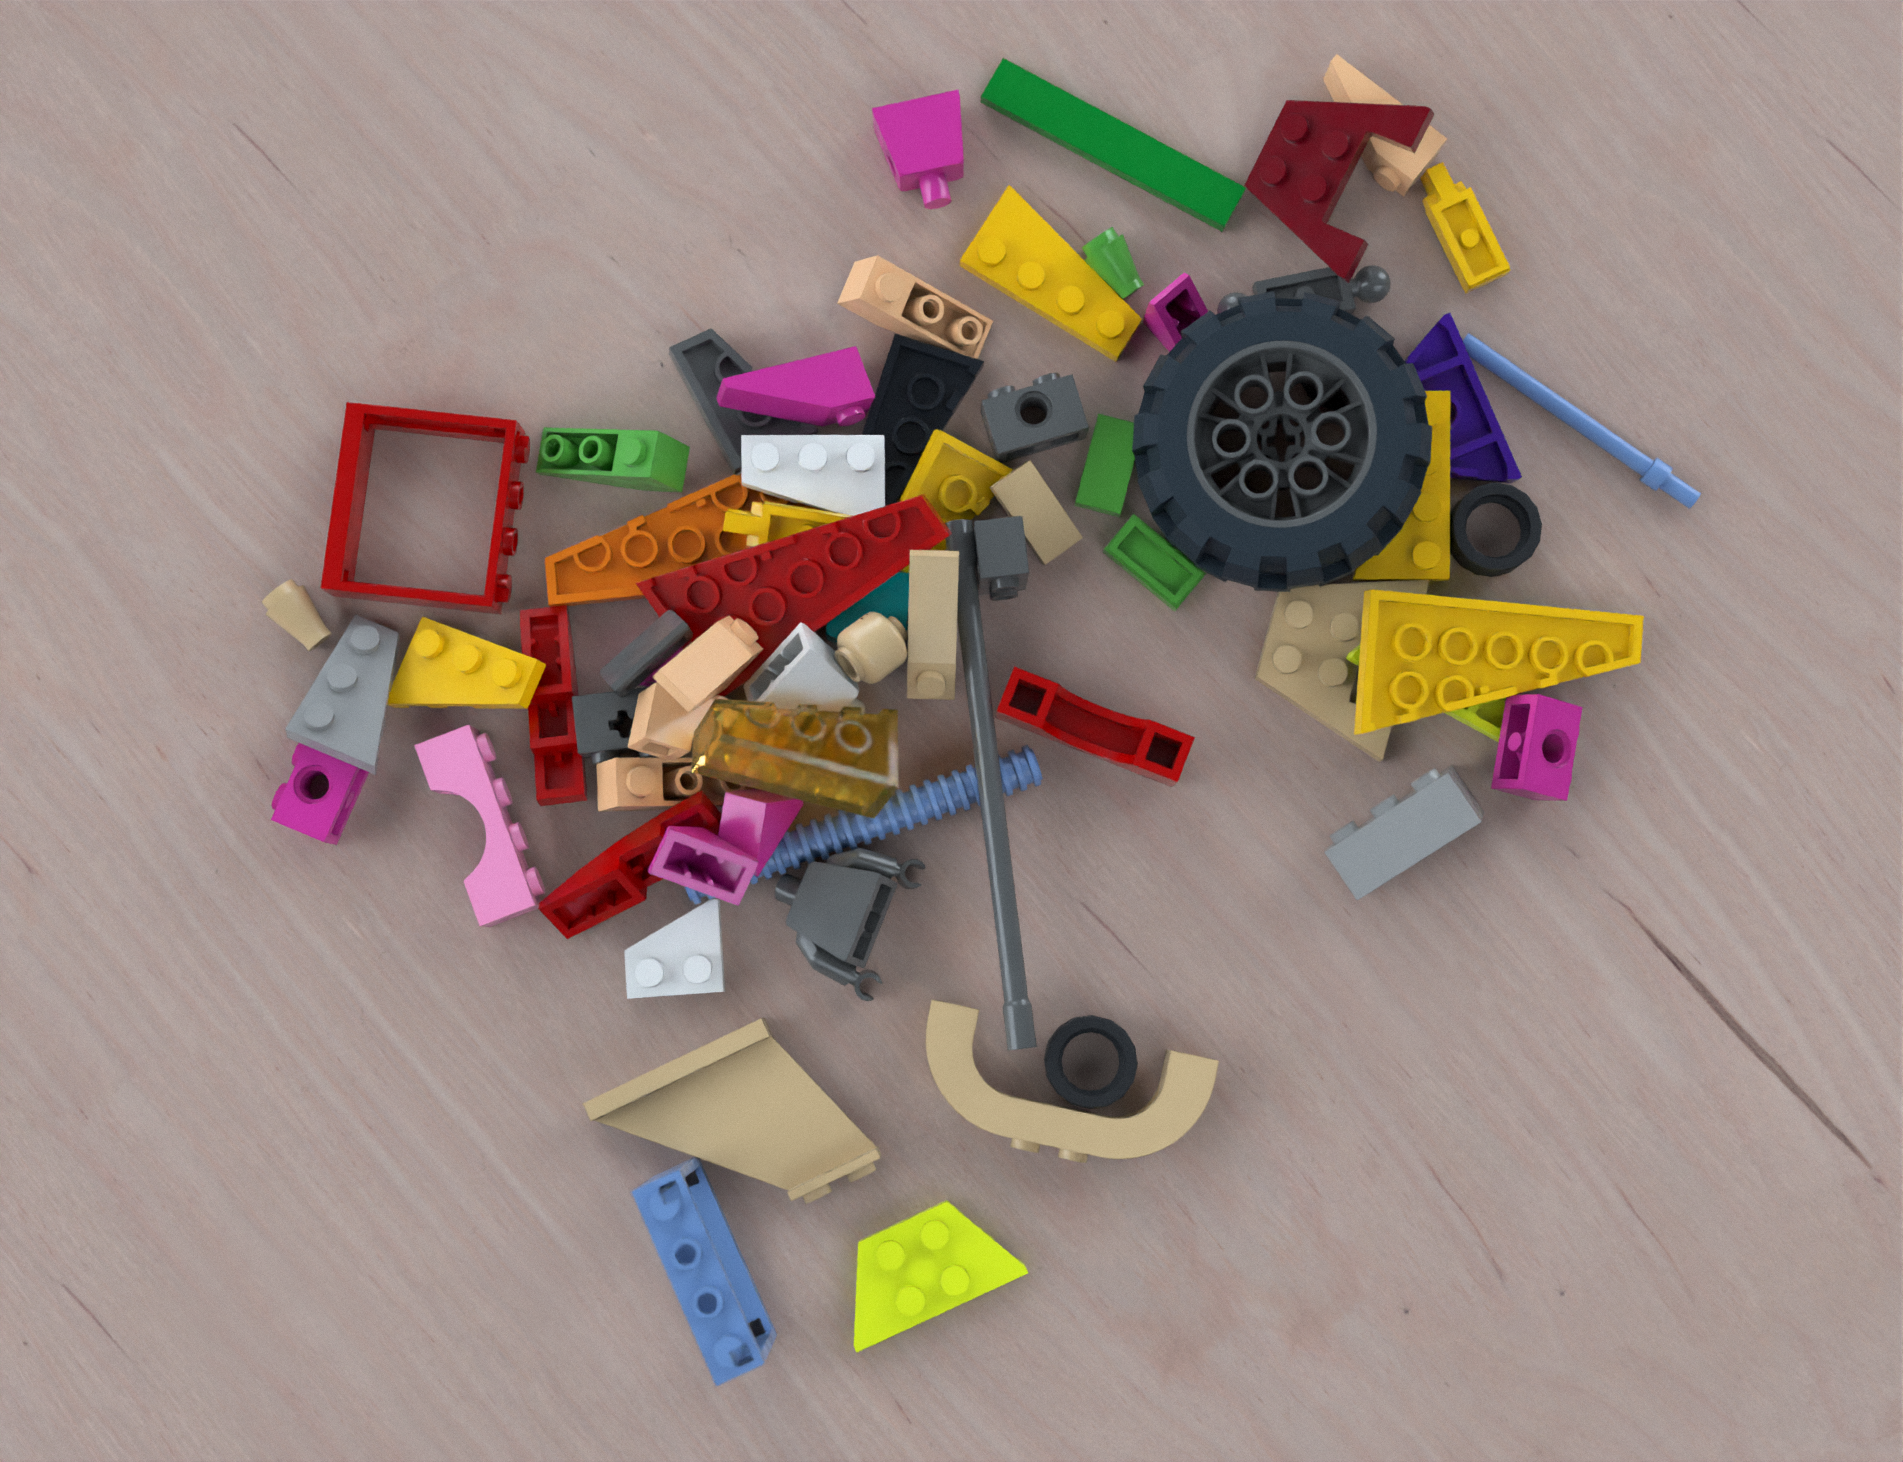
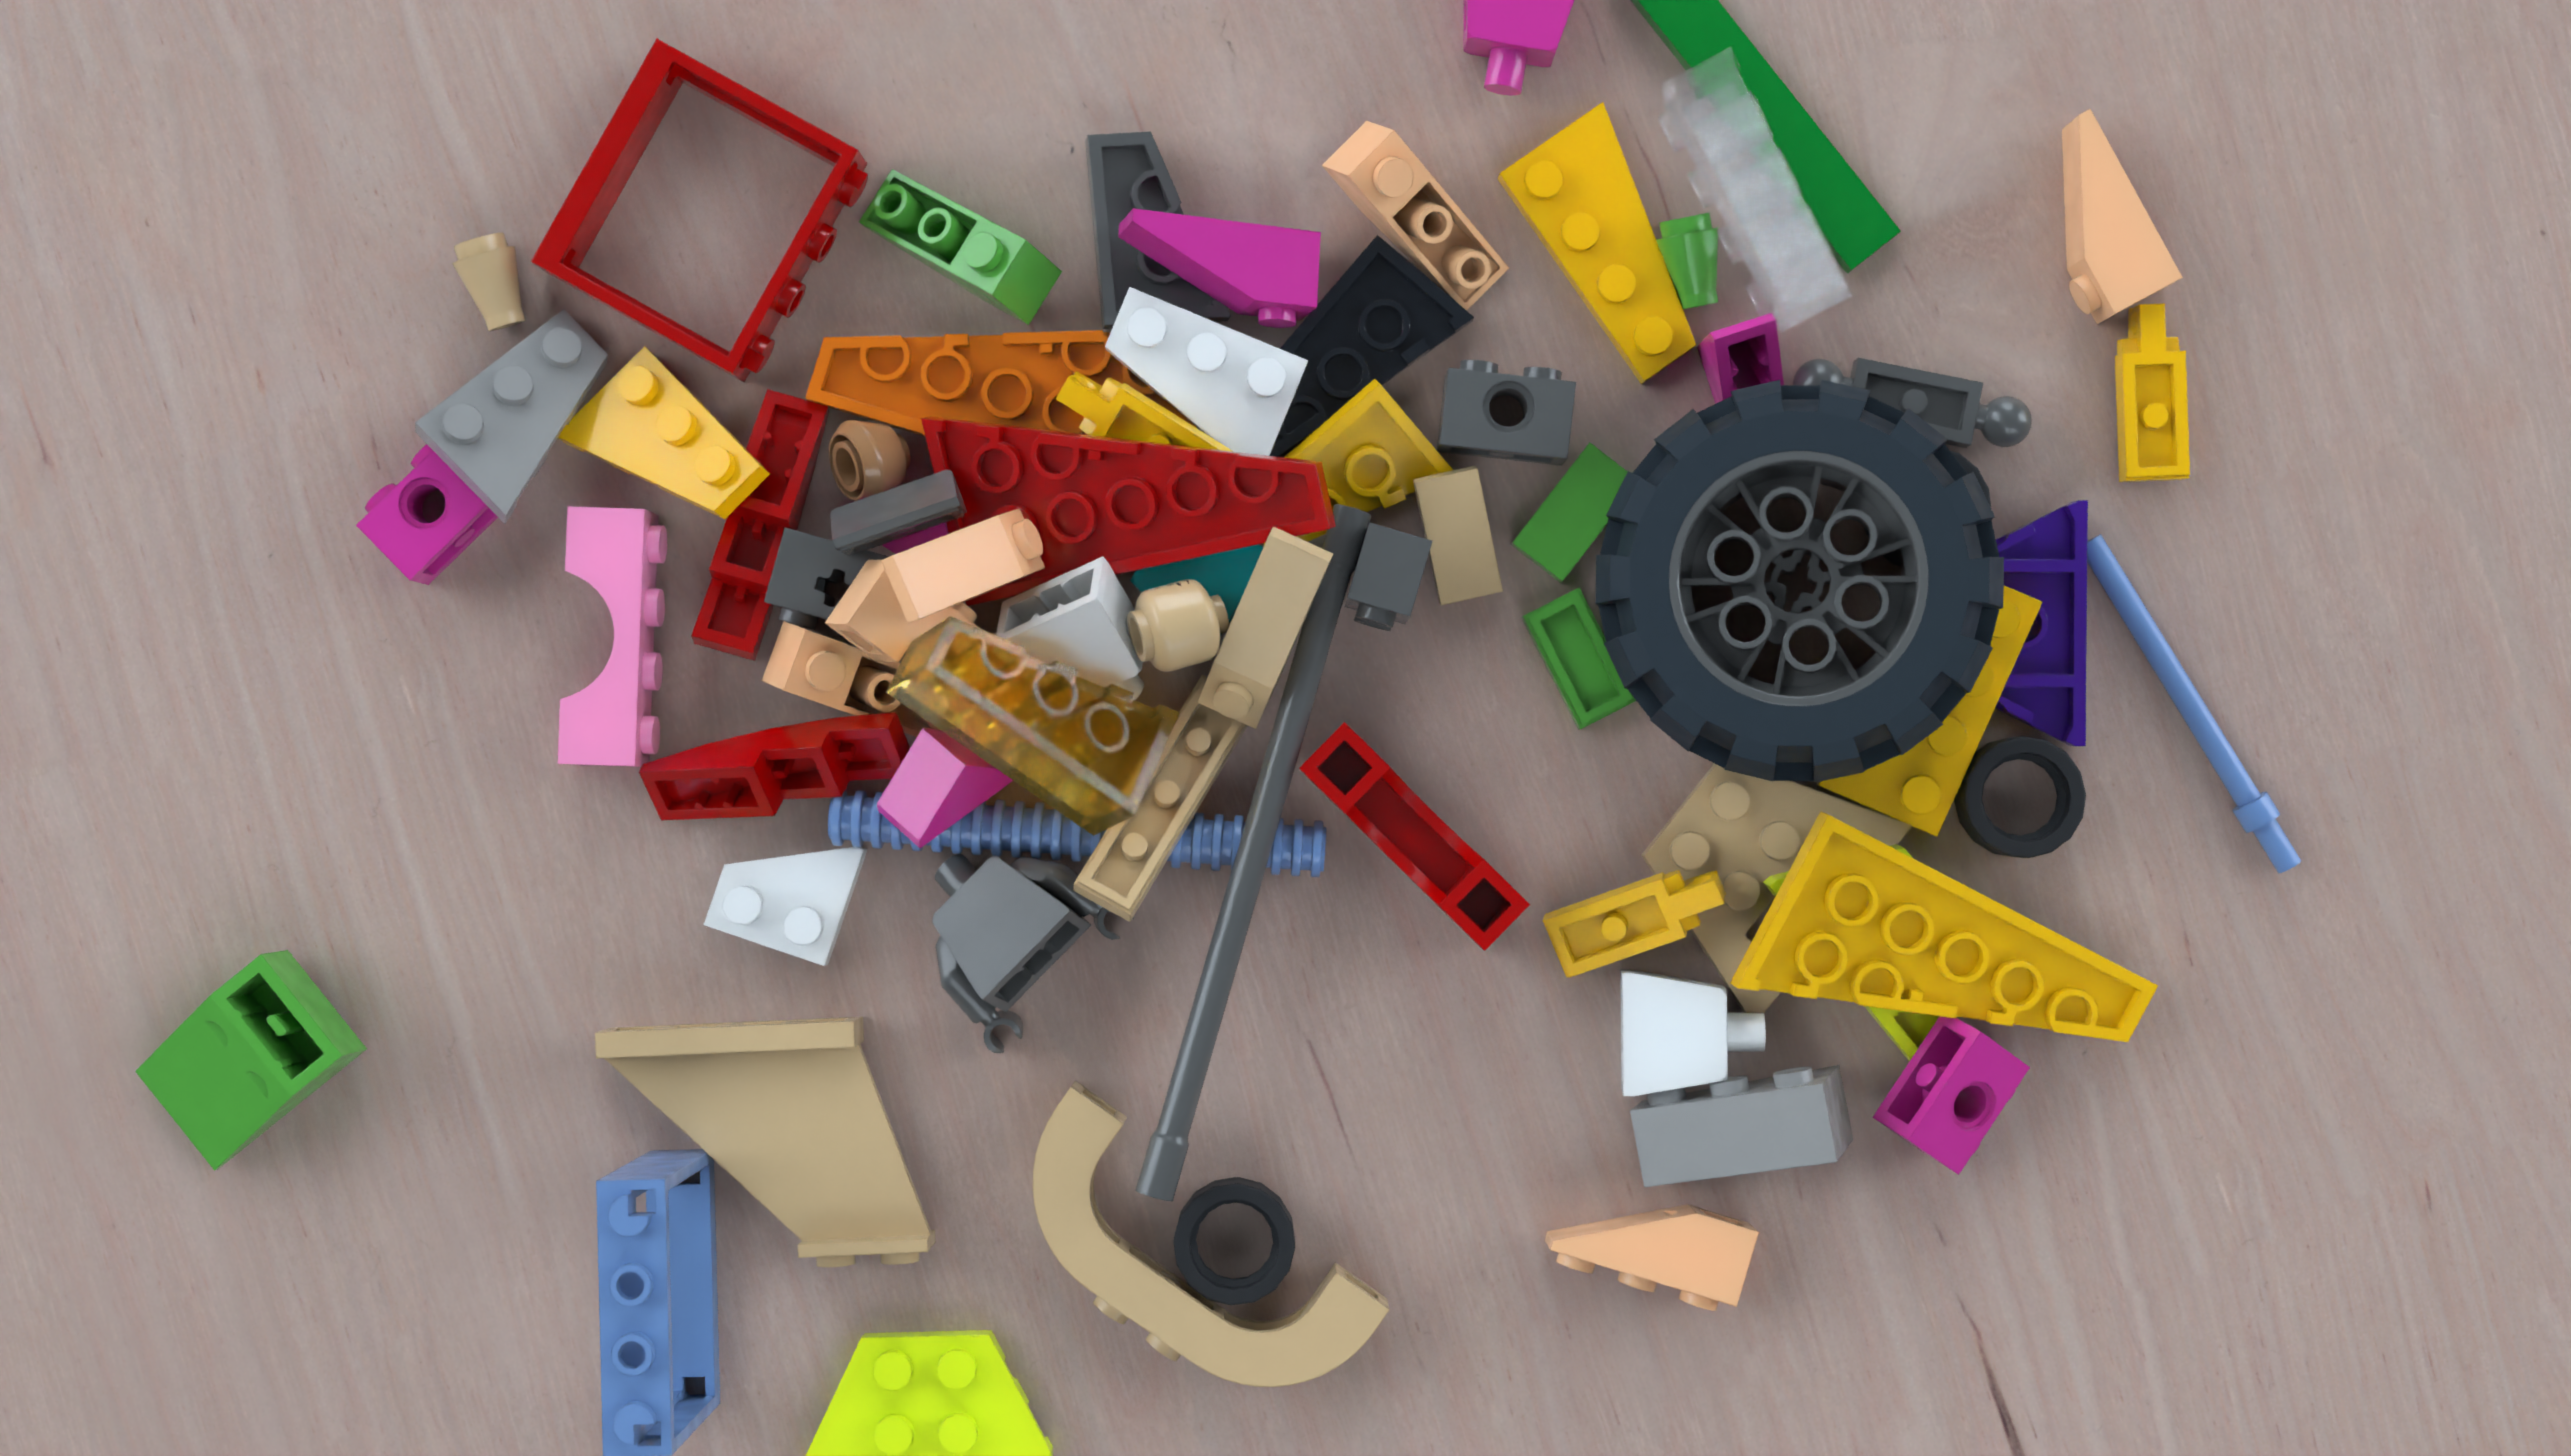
camera: 25 degrees right, 5 degrees up
(342, 1228) = (249, 1056): none -> bright green slope
(608, 628) = (867, 458): none -> medium nougat cone
(703, 863) = (859, 806): dark pink slope -> none
(908, 812) = (1138, 848): none -> tan tile
(1137, 197) = (1752, 190): none -> clear wedge
(1266, 722) = (1630, 919): none -> yellow hinge
(1312, 160) = (1996, 235): dark red wing -> none
(1333, 785) = (1679, 1032): none -> white torso
(1397, 934) = (1672, 1246): none -> light nougat slope

